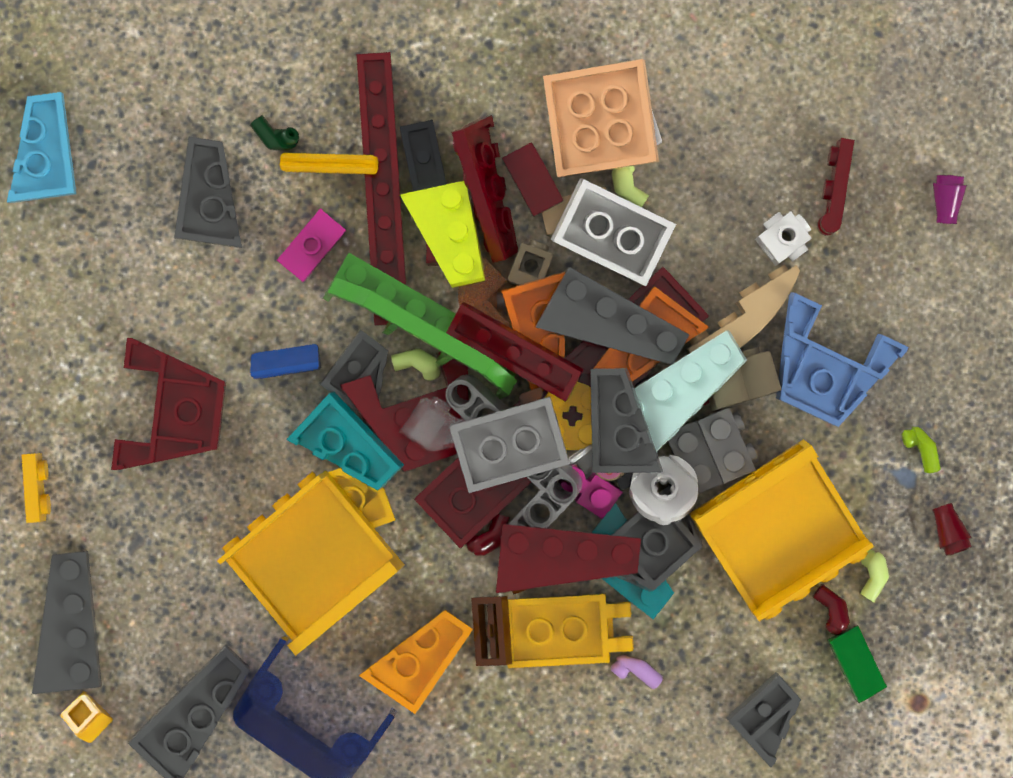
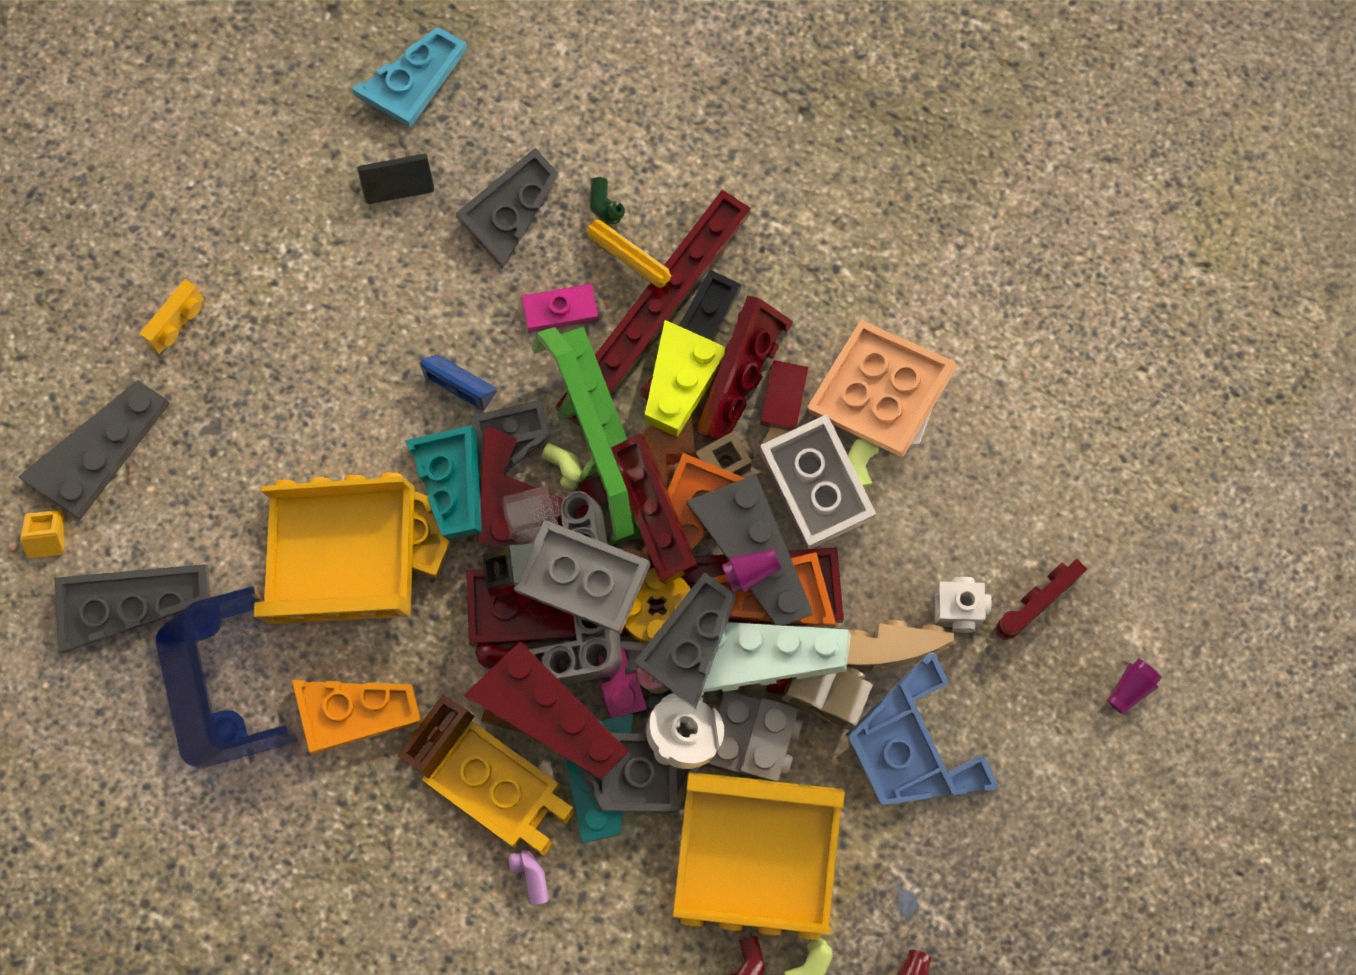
camera: 40 degrees right, 15 degrees down
(104, 245) = (396, 178): none -> pearl dark grey slope
(185, 410) = (344, 354): dark red wing -> none
(446, 476) = (506, 565): none -> pearl dark grey slope
(622, 344) = (750, 569): none -> magenta cone
(926, 446) = (947, 887): lime arm -> none

